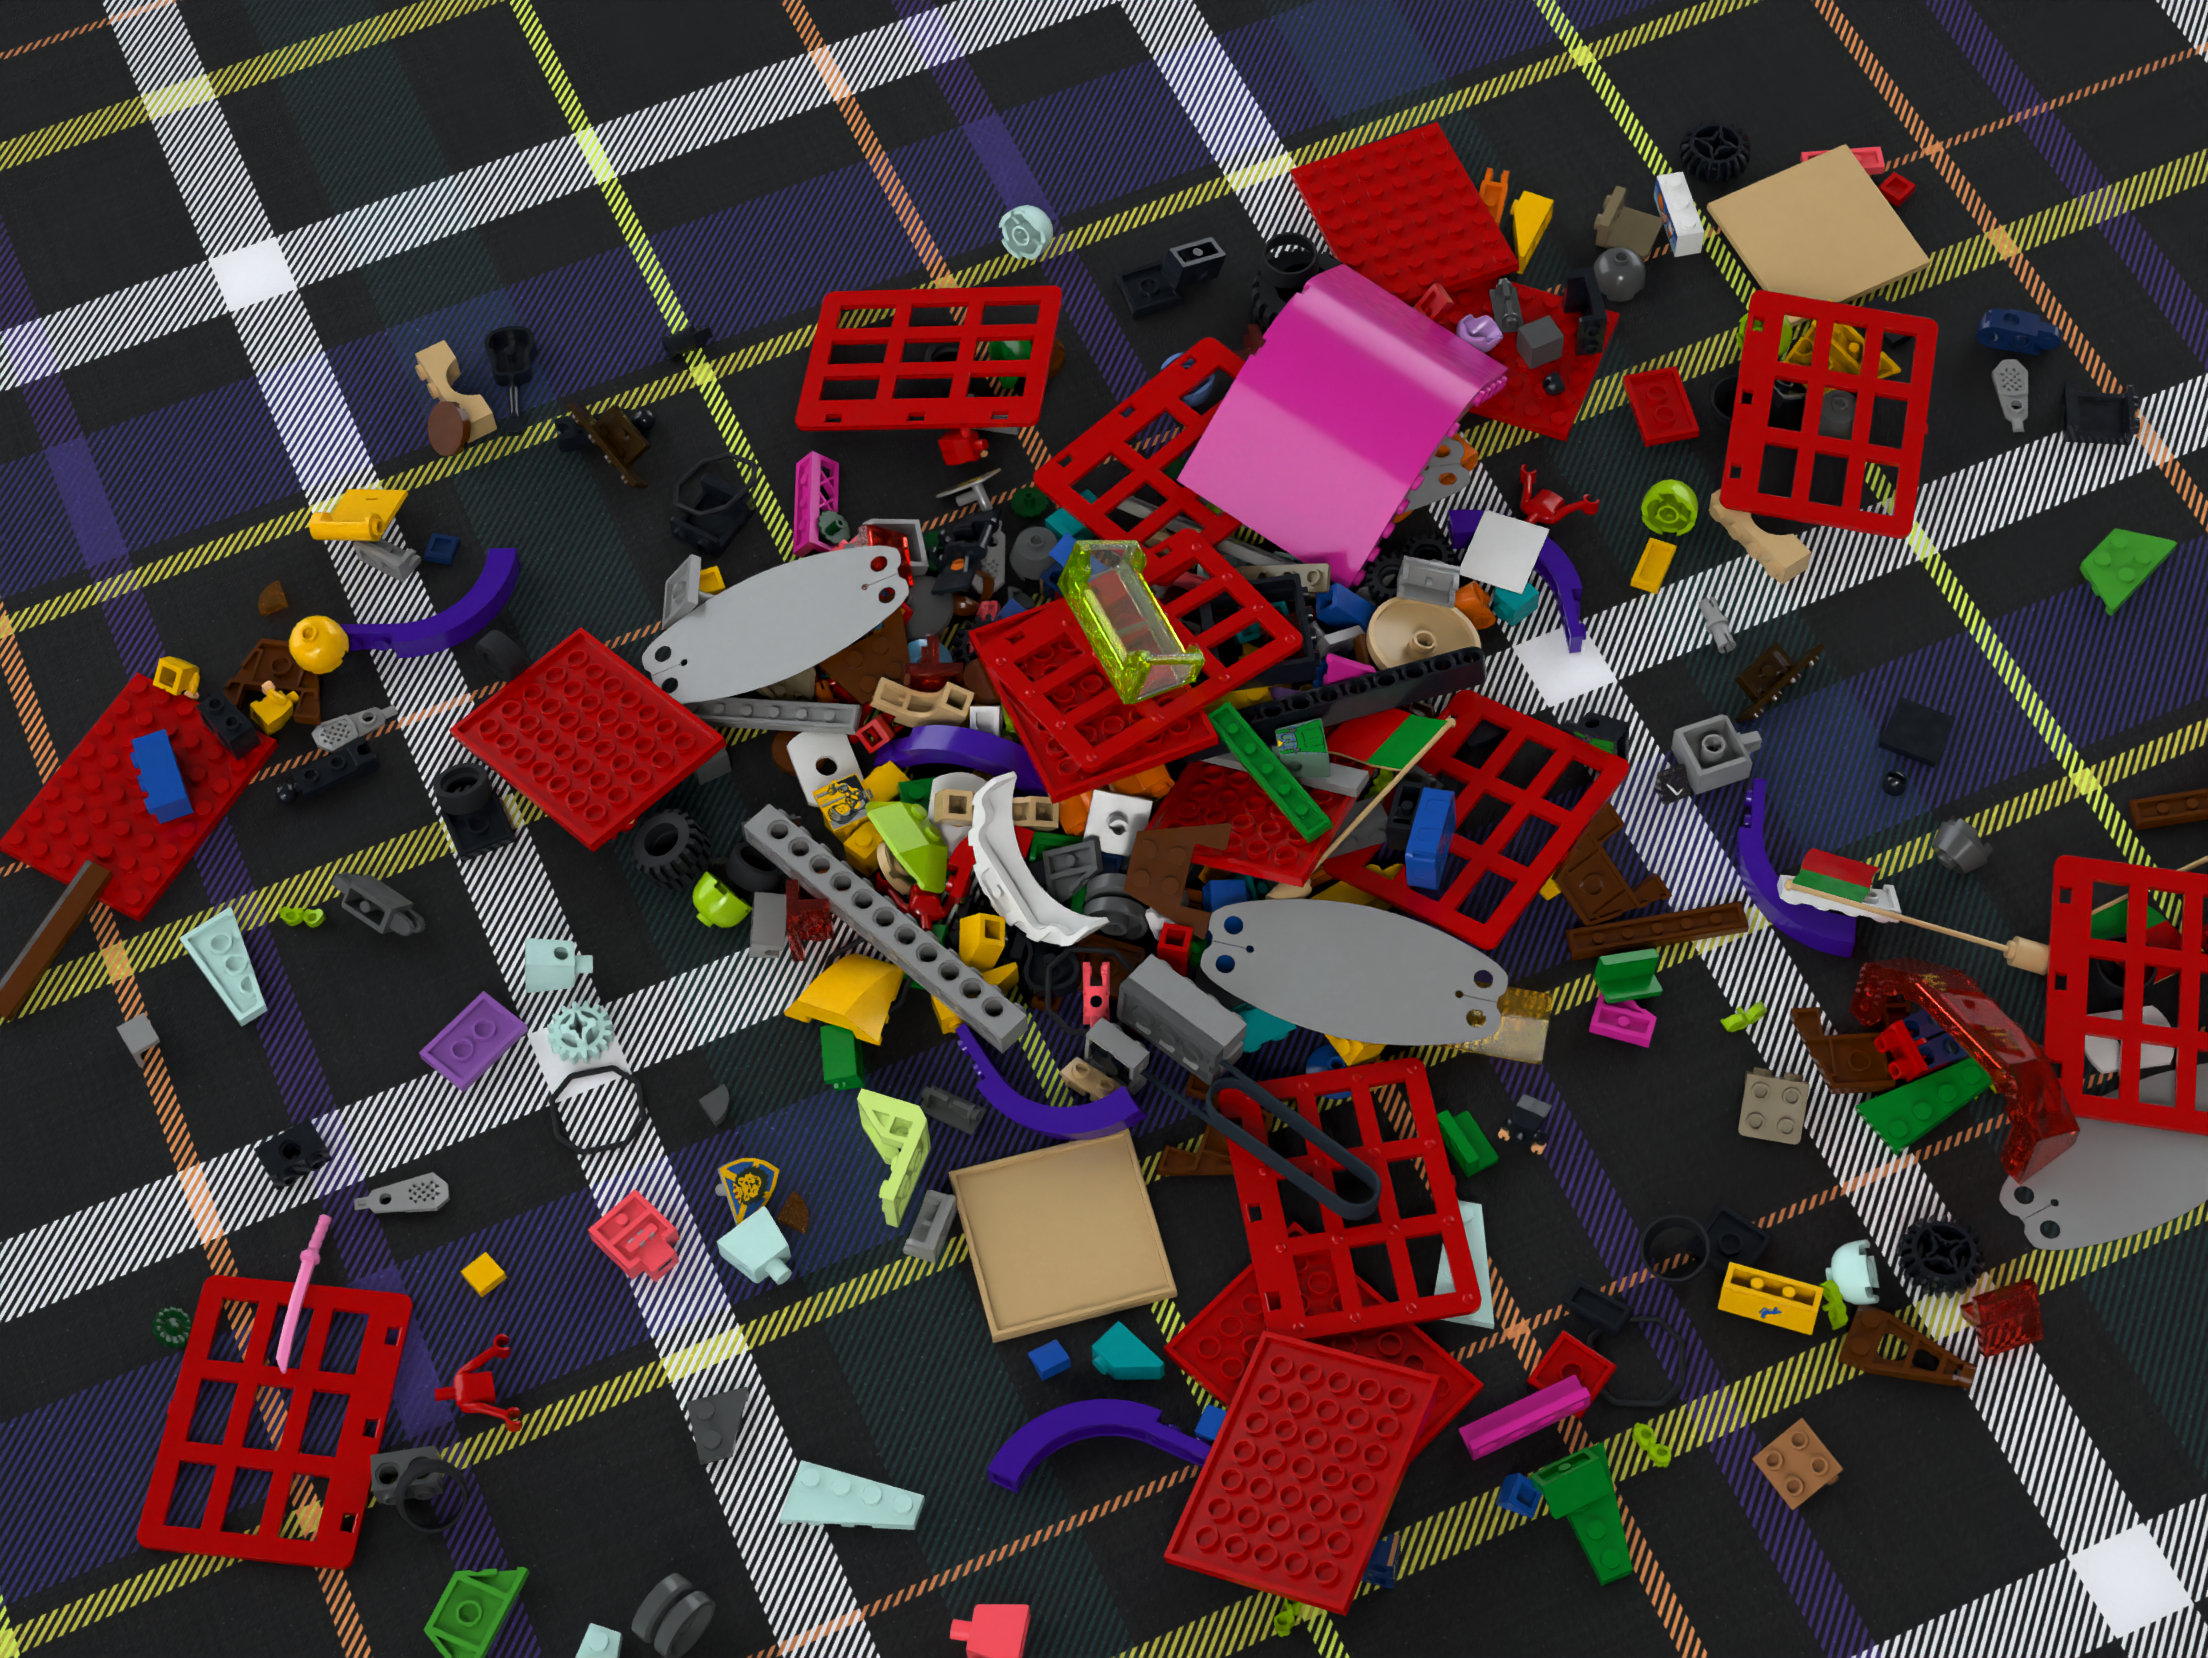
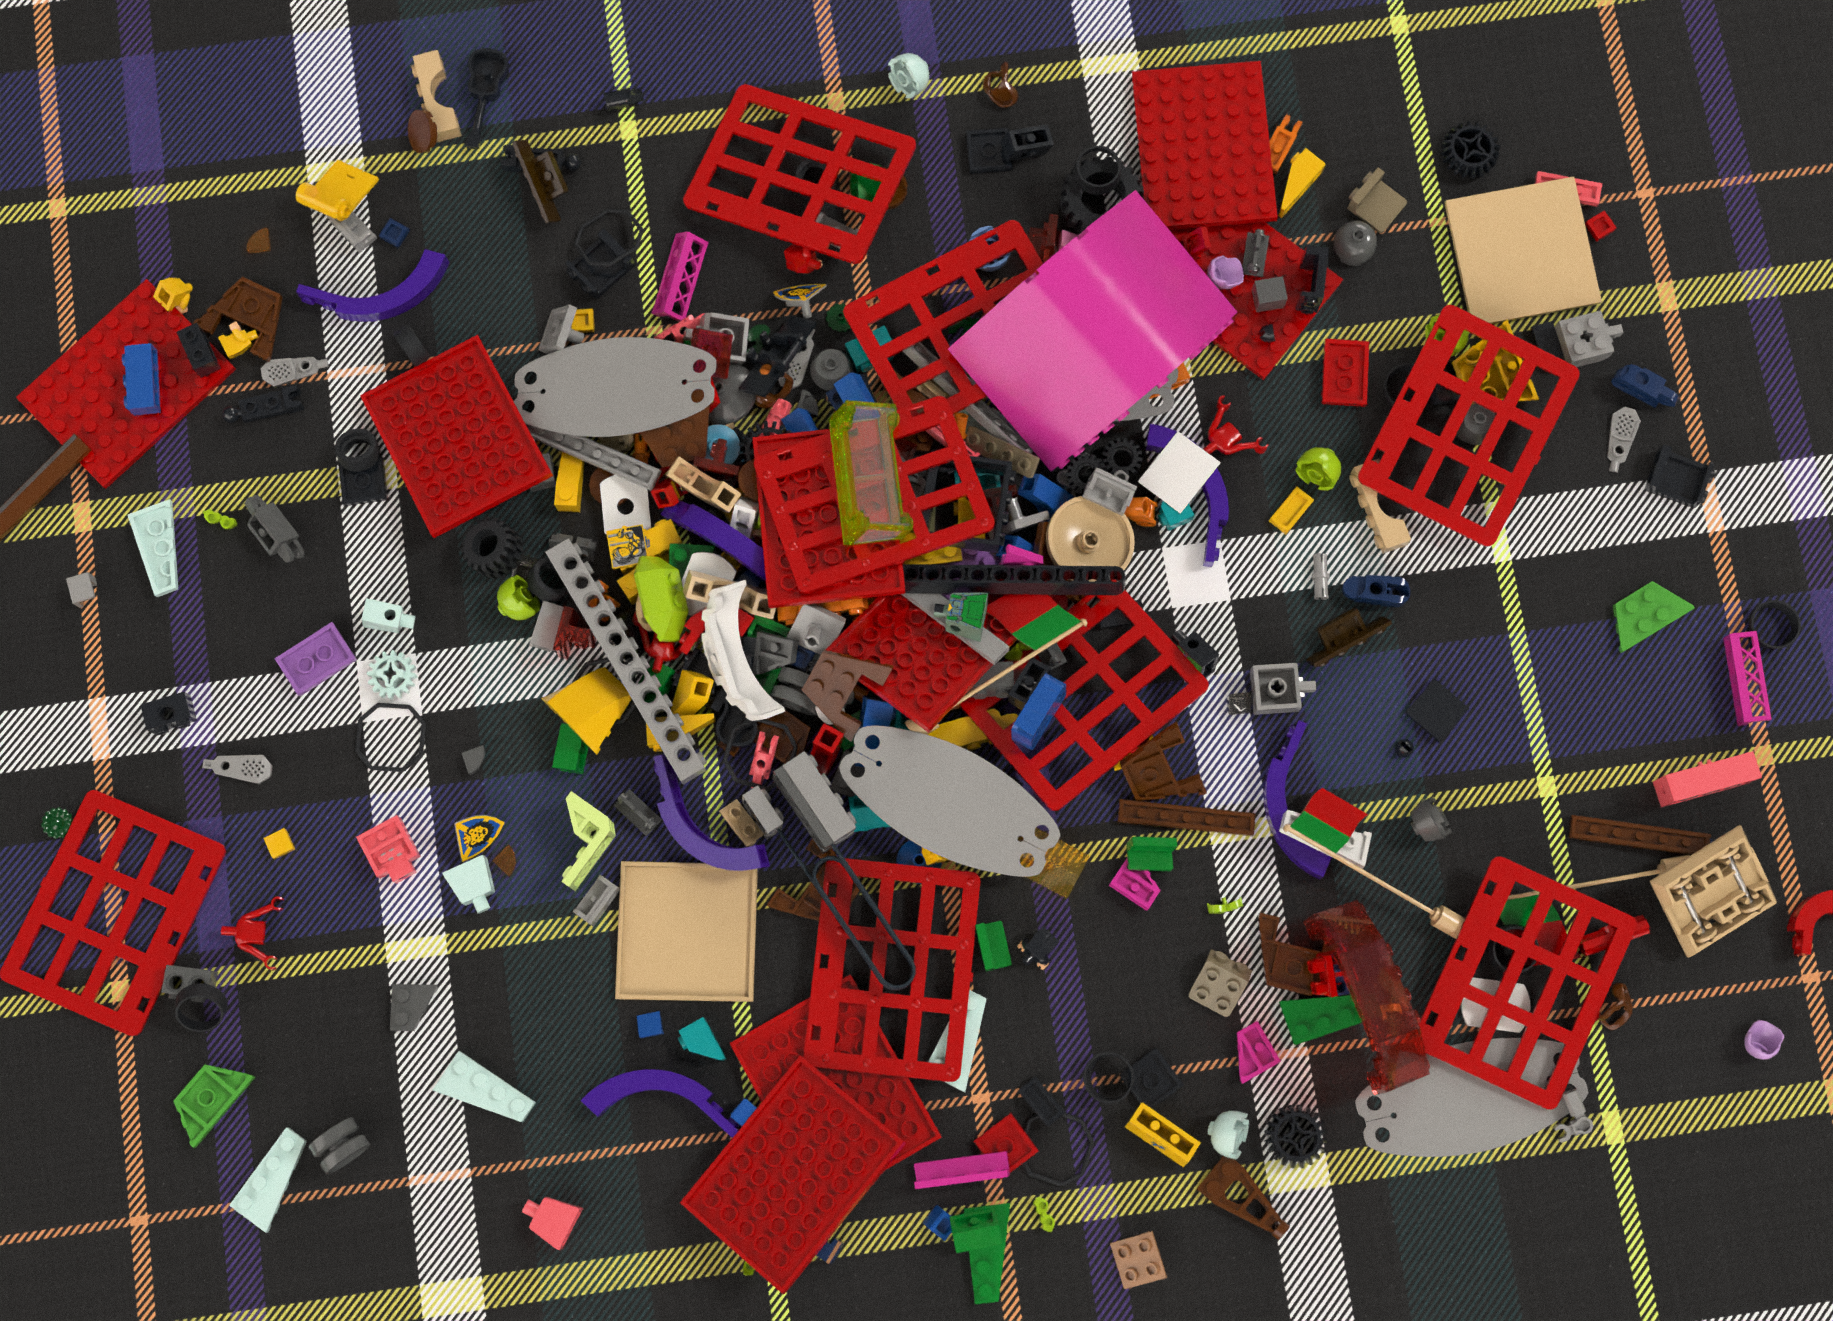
camera: 15 degrees right, 20 degrees up
(309, 1259) = (162, 797): bright pink sword -> none
(318, 644) = (280, 298): yellow cylinder -> none
(747, 761) = (569, 484): none -> yellow slope
(833, 527) = (687, 301): dark green piece -> none
(1147, 226) = (1004, 94): none -> reddish brown piece
(1269, 773) = (934, 629): green tile -> none
(1678, 214) = (1420, 201): white brick -> none
(1808, 617) = (1358, 589): none -> dark blue piece
(1835, 1307) = (1207, 1153): lime piece -> none
(1849, 1173) = (1254, 1052): none -> dark pink wing
(1931, 296) = (1595, 336): none -> light grey hinge
(2005, 1317) = (1322, 1196): clear red bracket -> none

